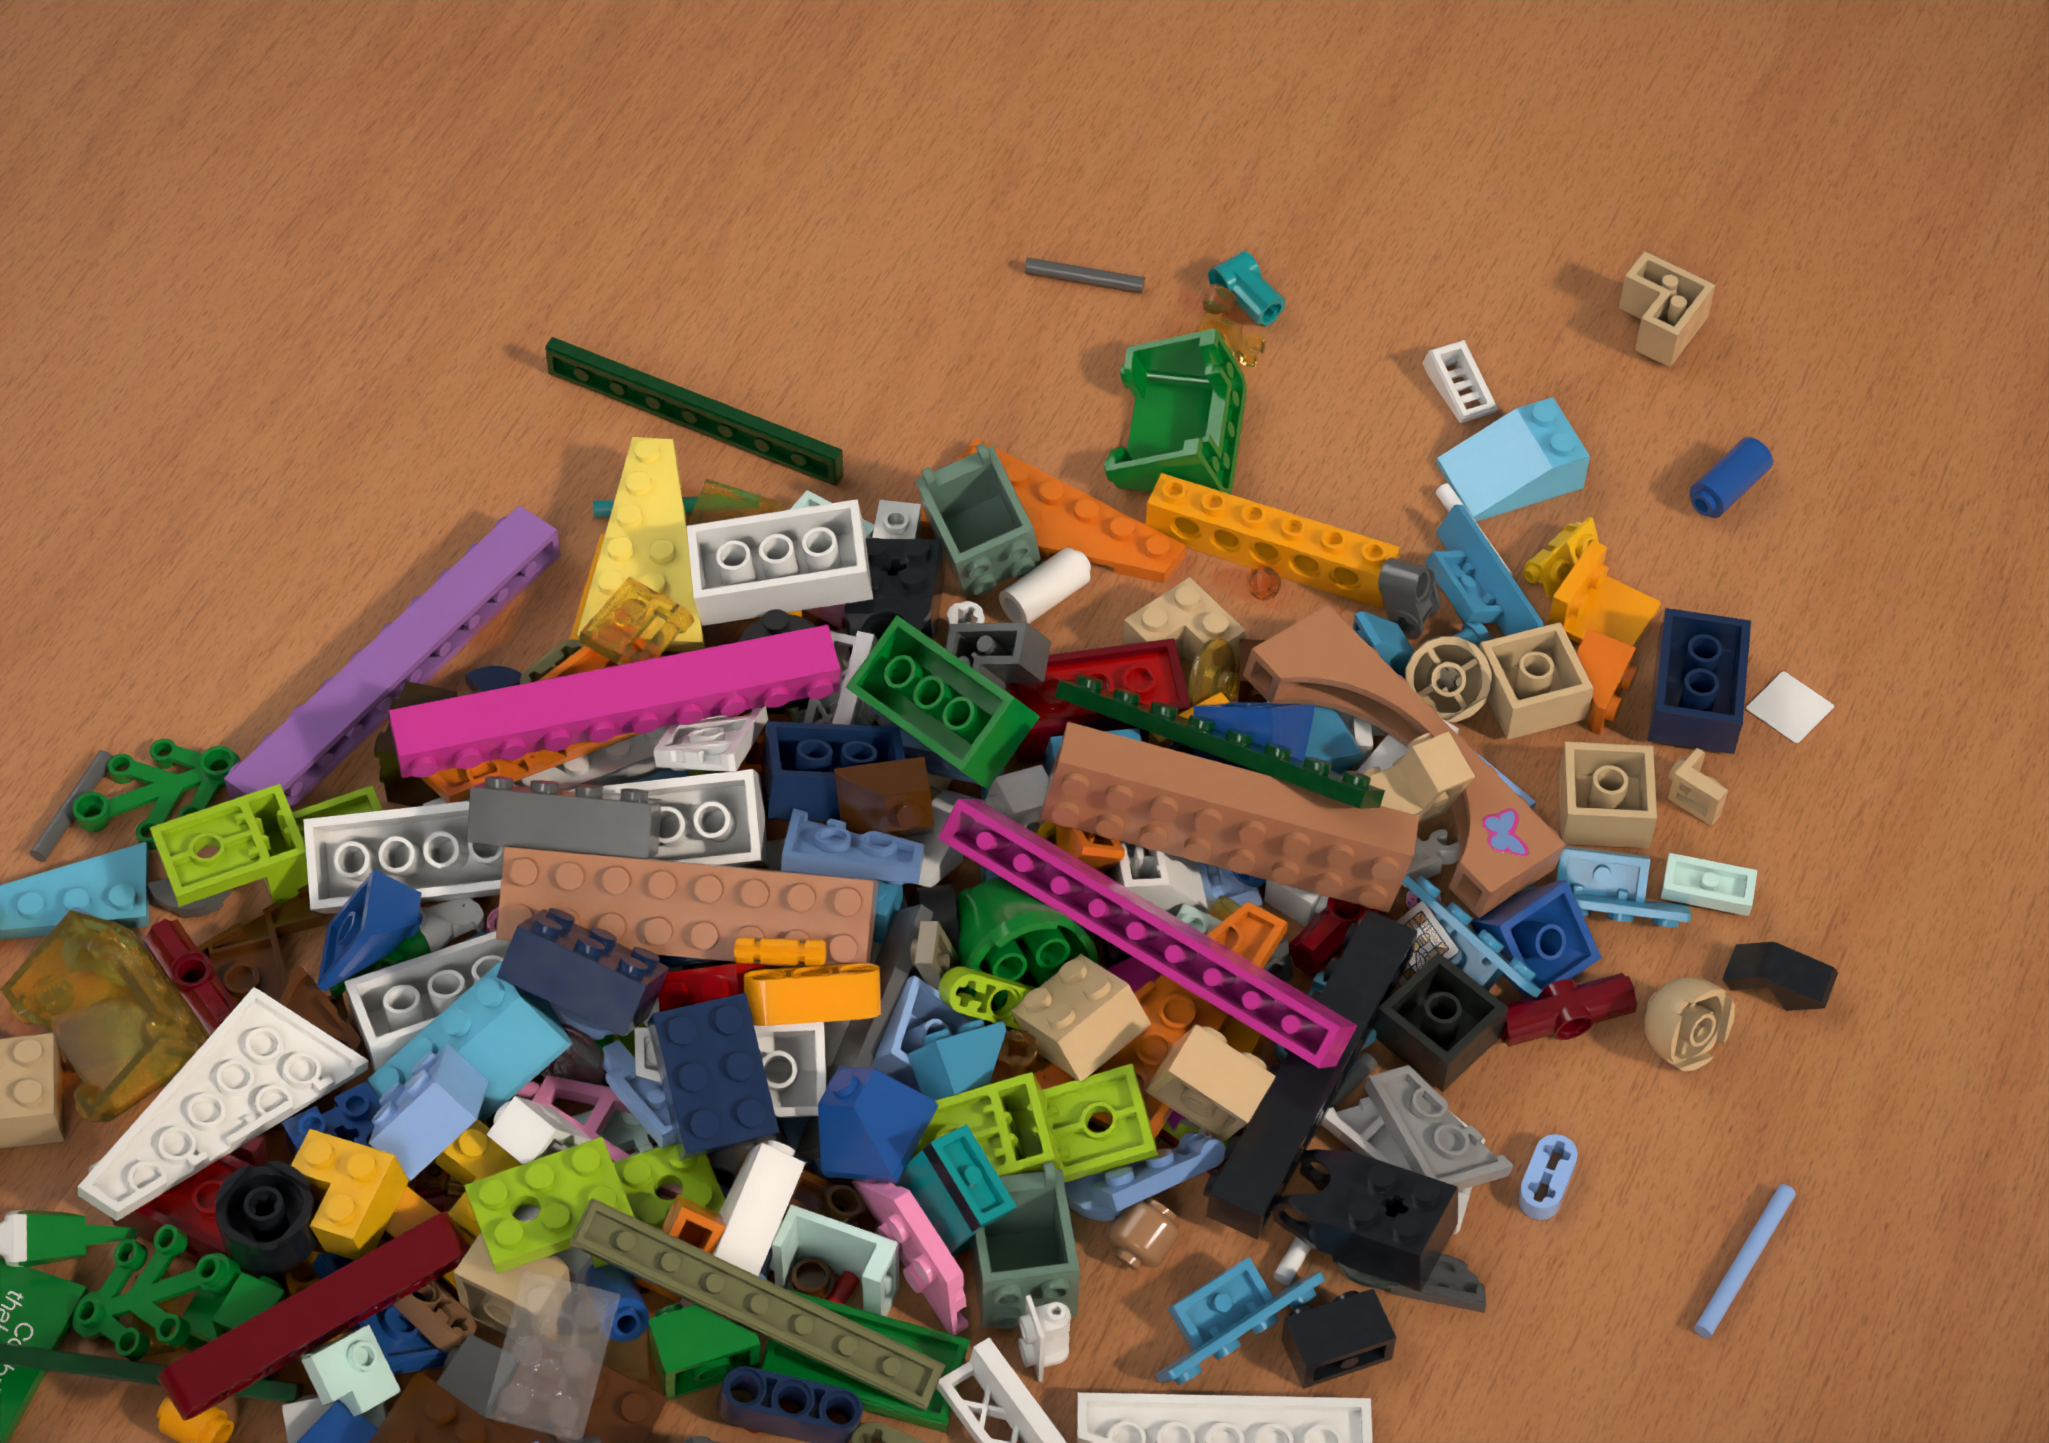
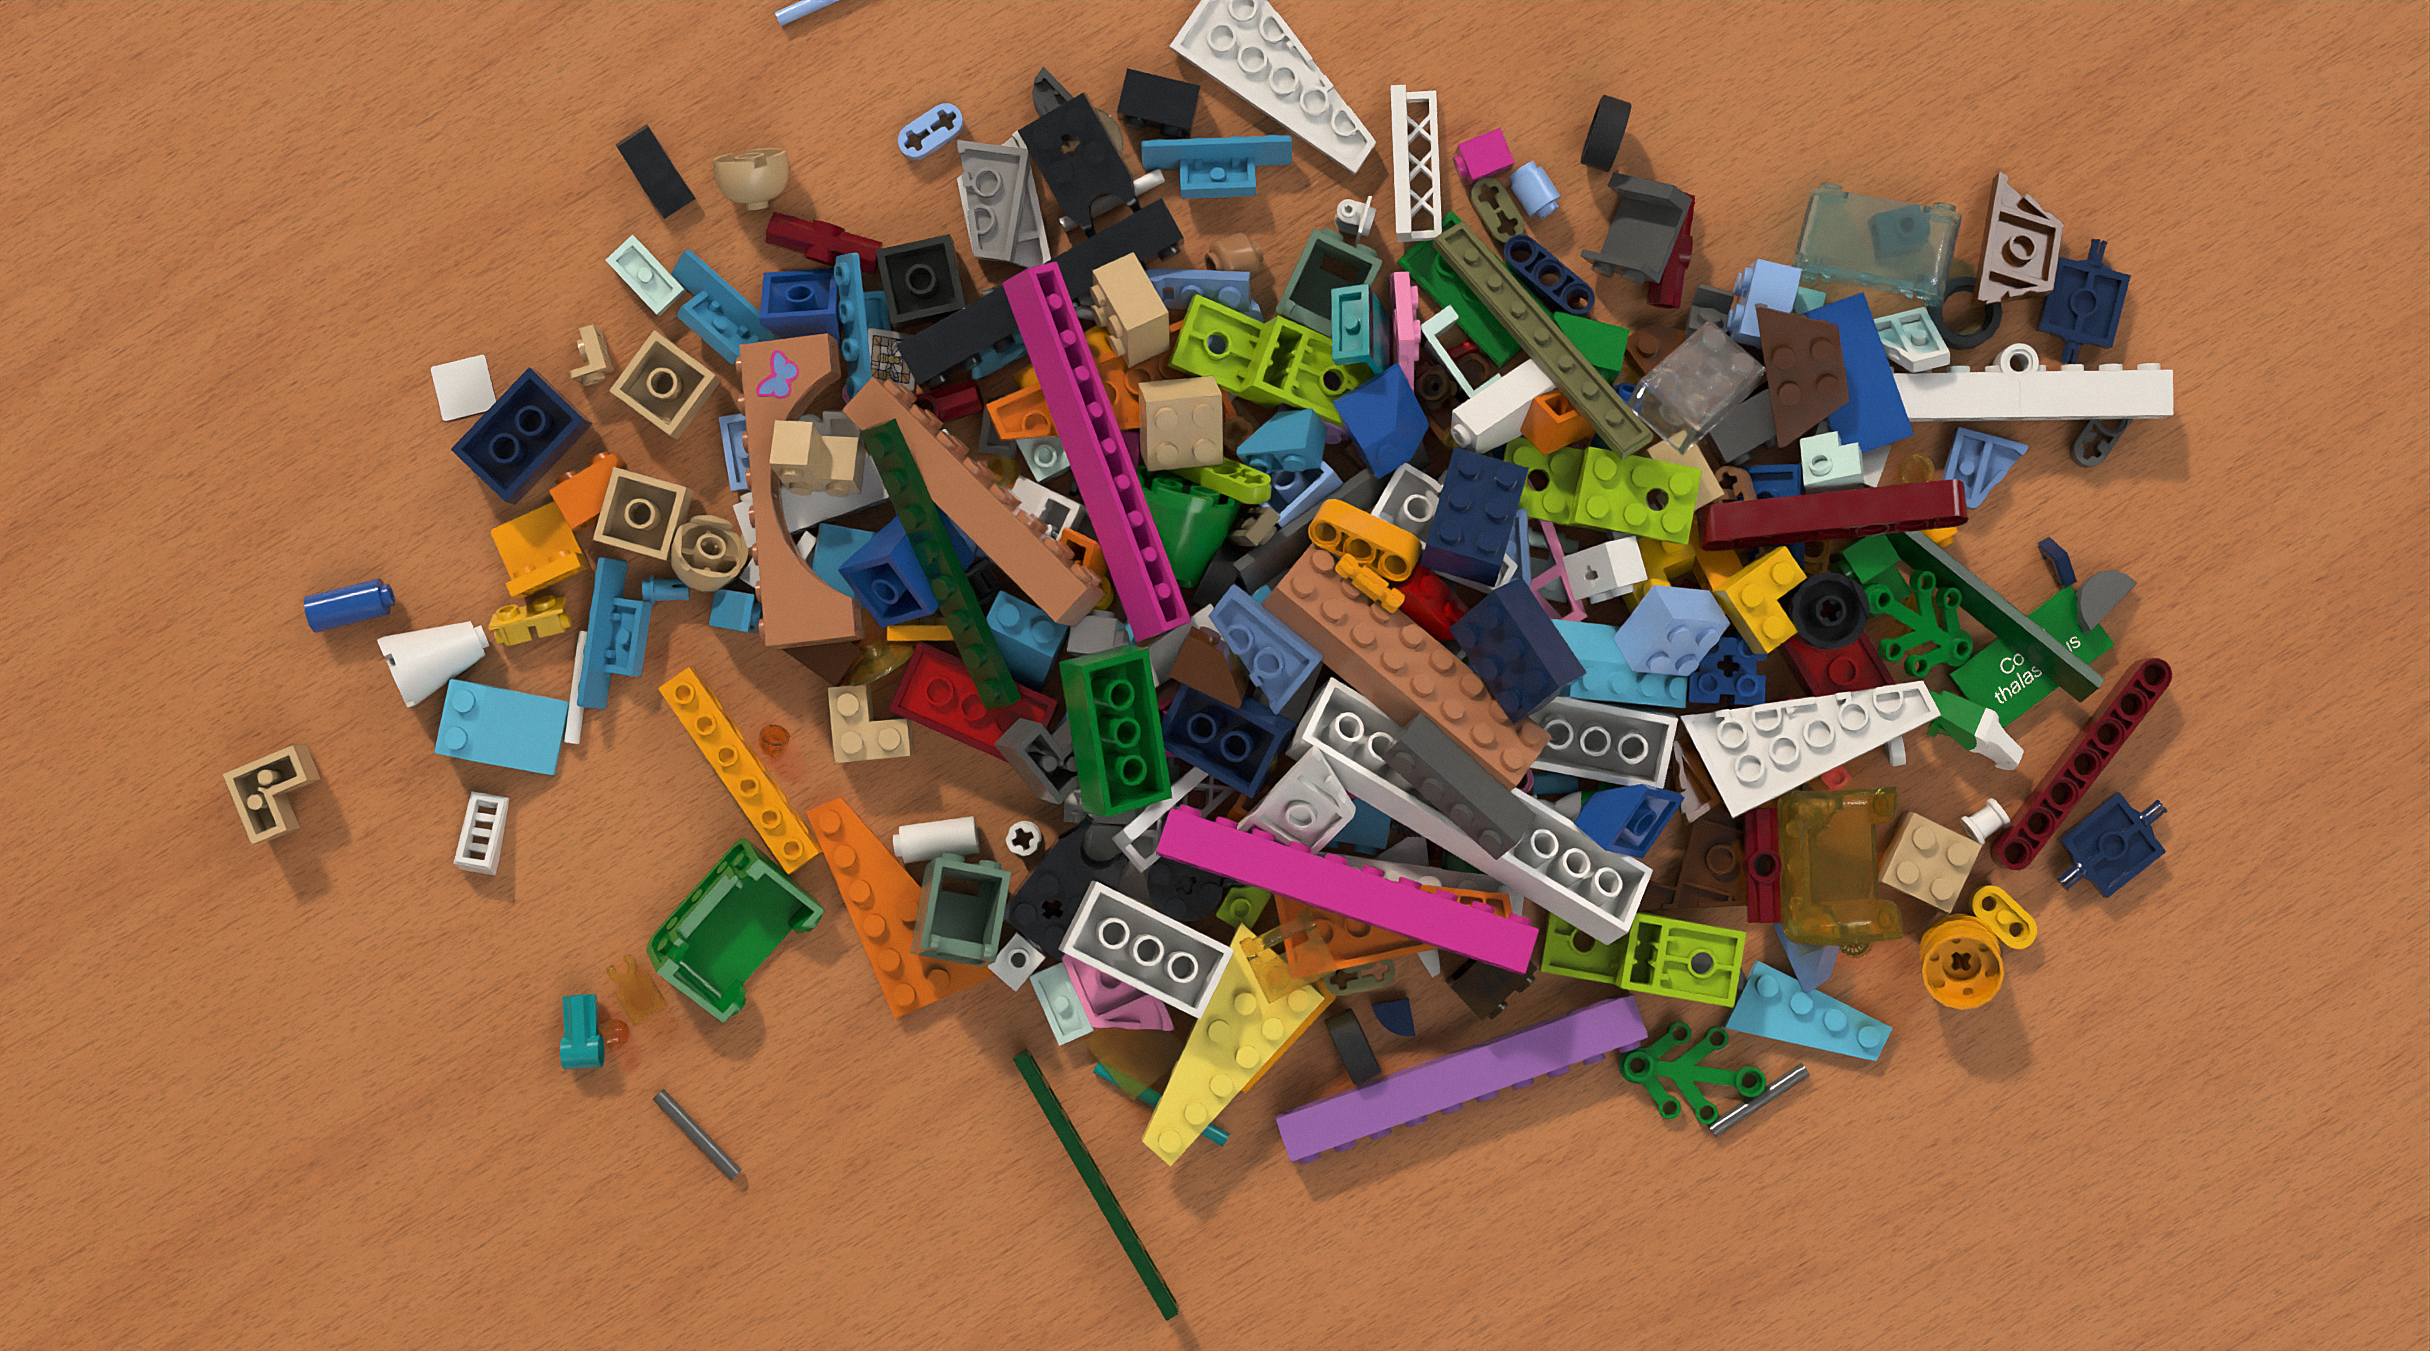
camera: 145 degrees left, 35 degrees up
(521, 623) = (1352, 1046): none -> black tyre
(1408, 595) = (681, 647): dark grey piece -> none
(1624, 467) = (431, 657): none -> white cone

